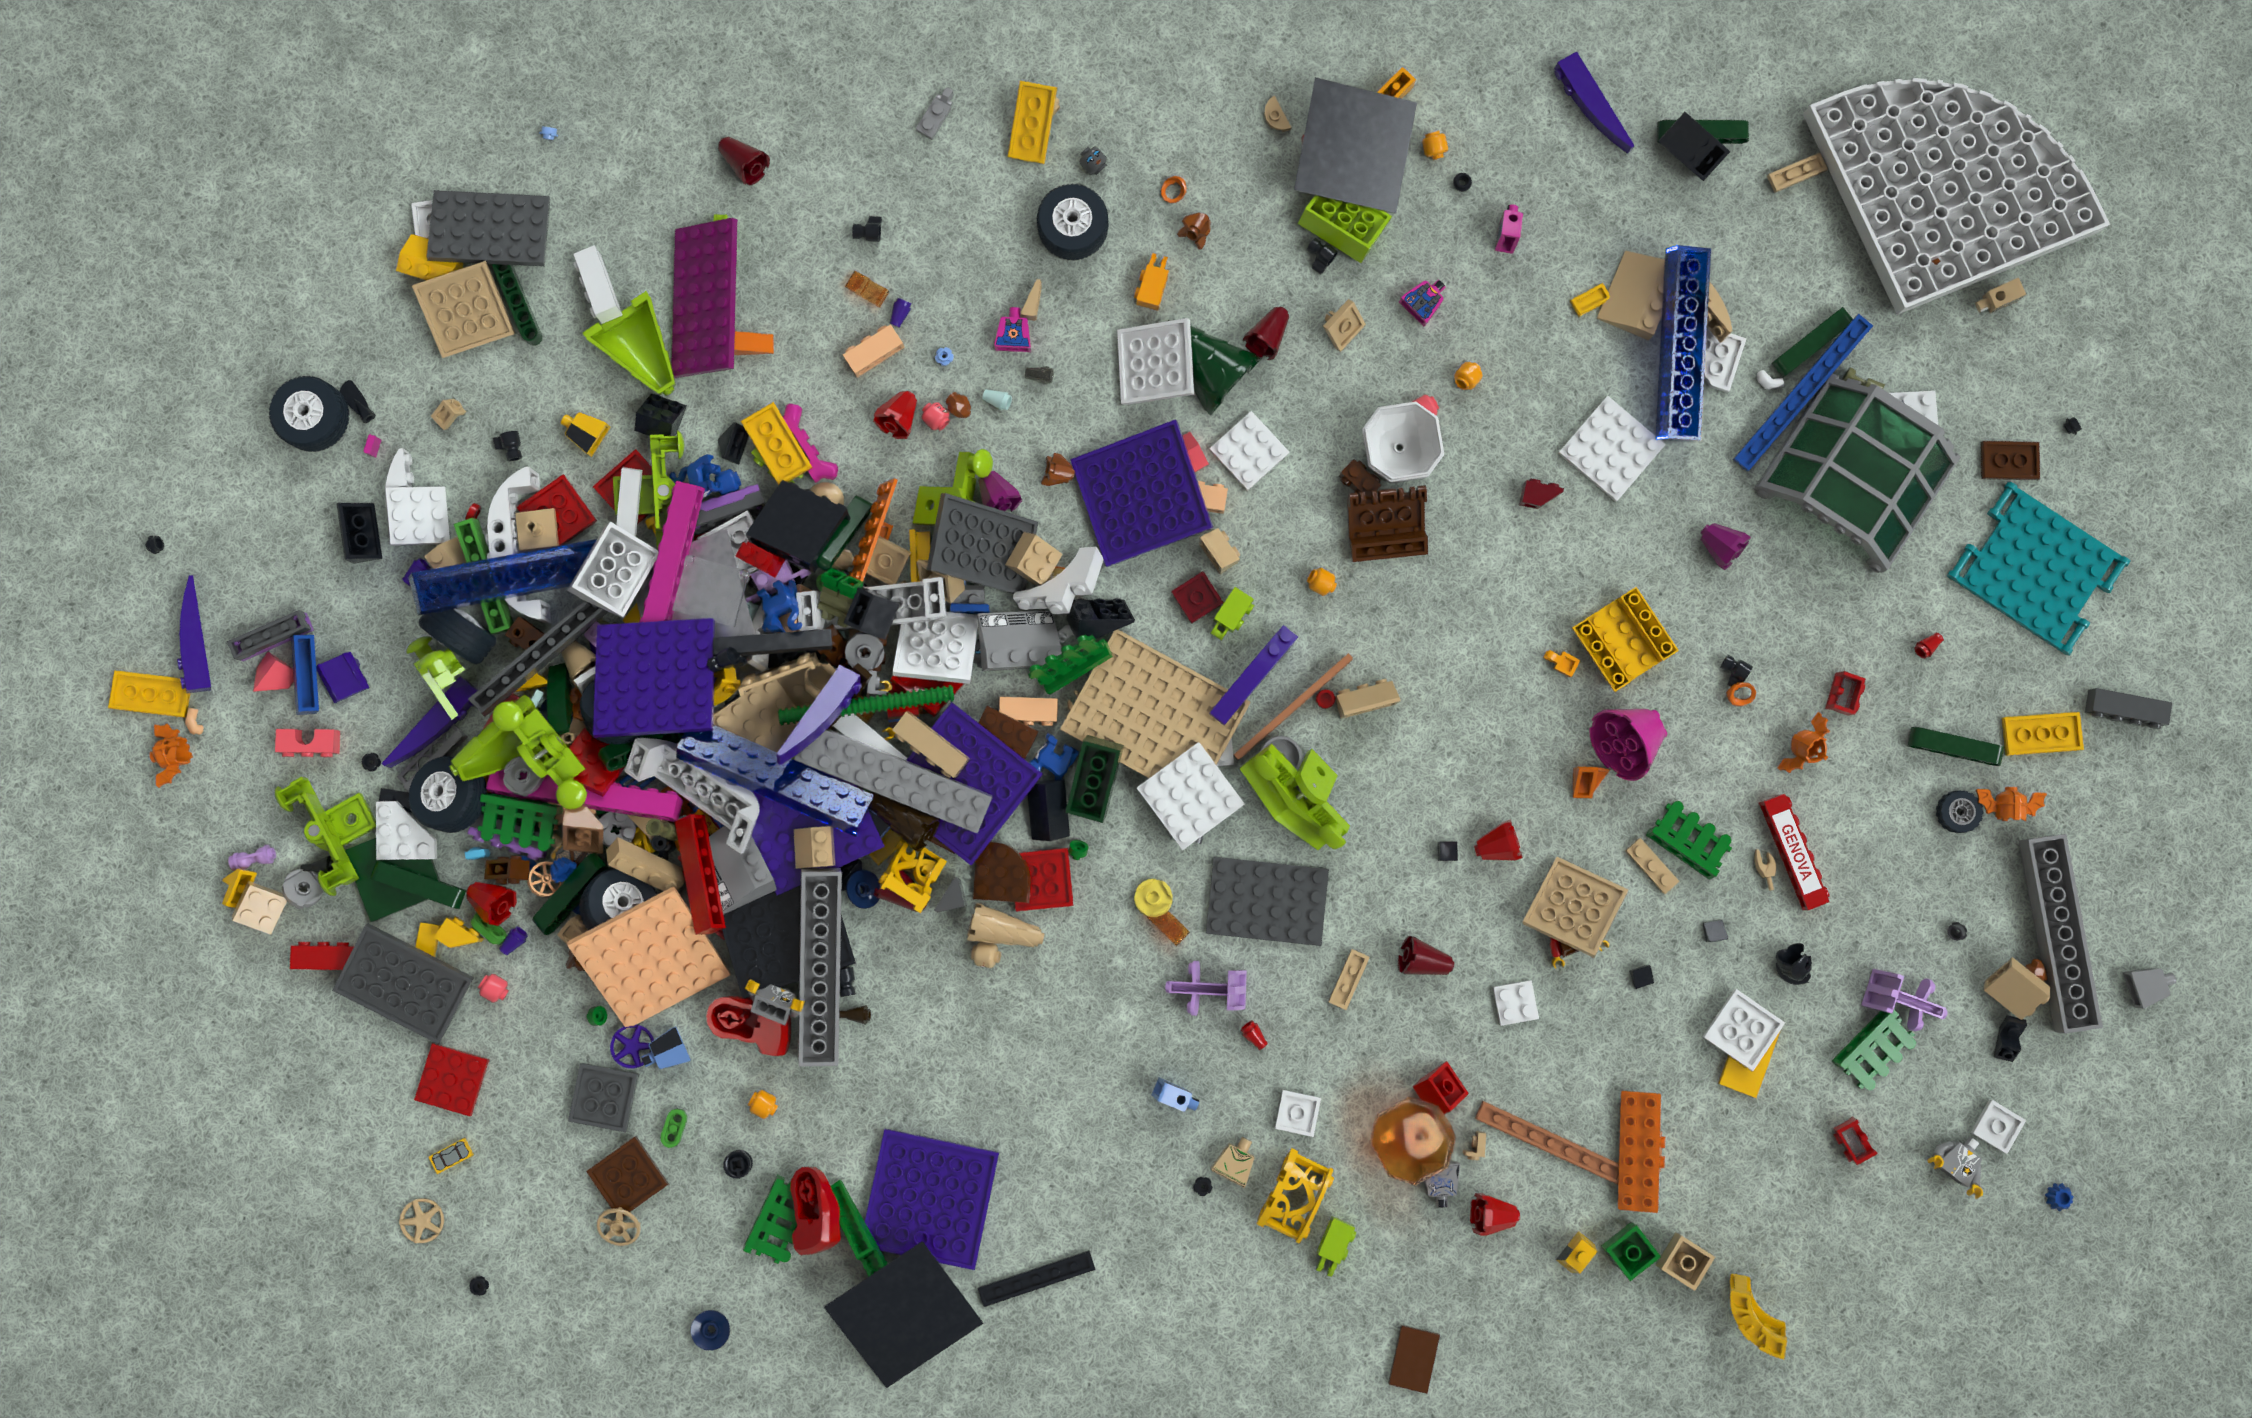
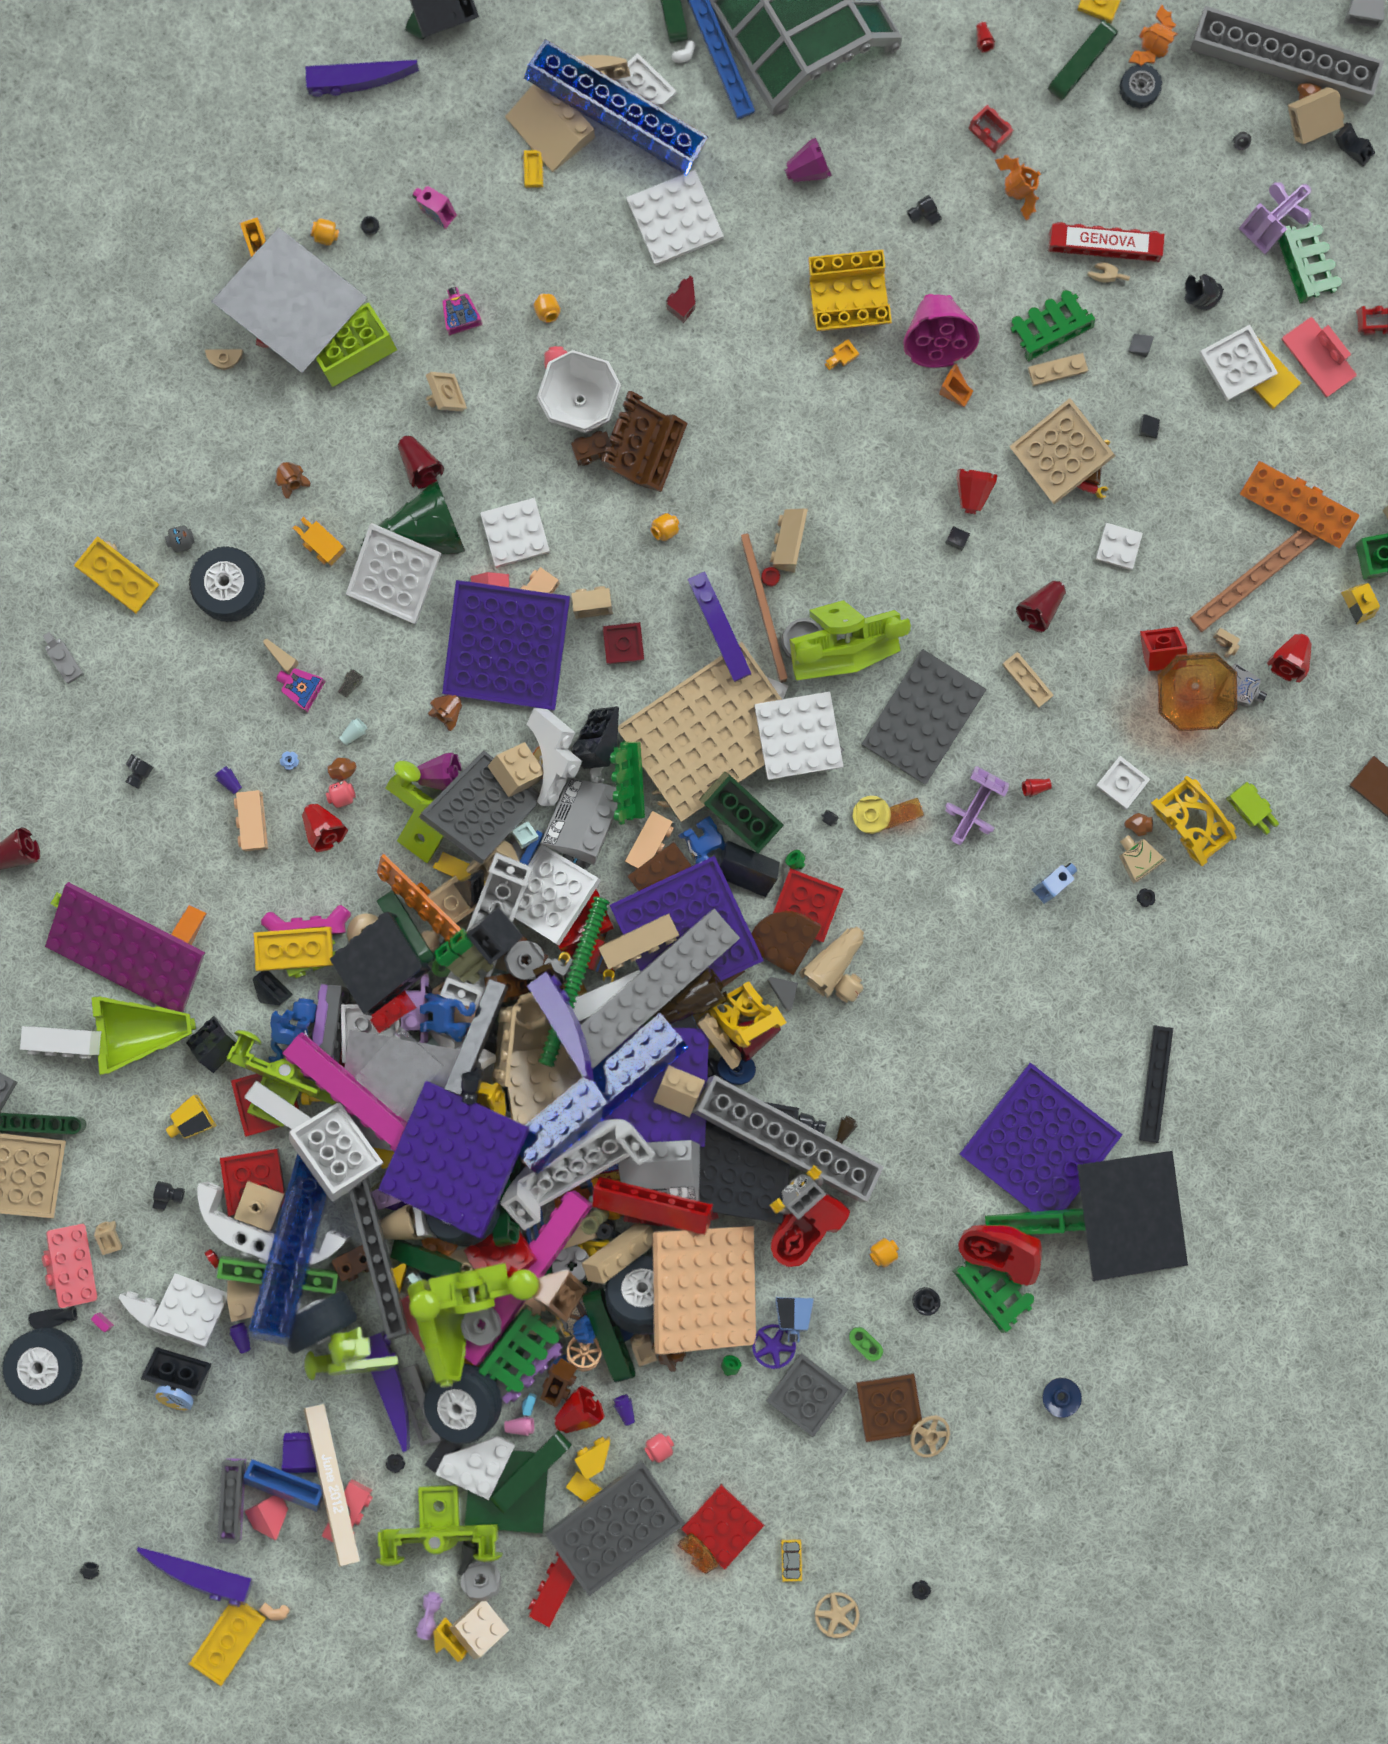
camera: 60 degrees left, 0 degrees up
(169, 753) = (293, 1647): orange helmet -> none
(323, 715) = (331, 1485): none -> tan tile
(334, 541) = (174, 1399): none -> light blue tile
(407, 393) = (69, 1266): none -> coral bracket
(415, 1074) = (702, 1557): none -> clear orange slope
(455, 856) = (520, 1426): none -> bright pink cone
(492, 933) = (610, 1424): bright green plate -> none
(867, 289) = (192, 799): clear orange slope -> none
(879, 861) = (720, 1040): none -> tan plate
(906, 572) = (471, 887): none -> black slope
(978, 596) = (525, 834): none -> light aqua plate
(1132, 861) = (829, 818): none -> black plate
(1170, 181) = (234, 479): orange piece -> none
(1232, 612) = (653, 619): lime brick -> none
(1266, 1147) = (1139, 824): none -> dark orange rock
(1324, 255) = (373, 378): black piece -> none
(1740, 702) = (950, 225): orange piece -> none
(1791, 1103) = (1320, 355): none -> coral bracket

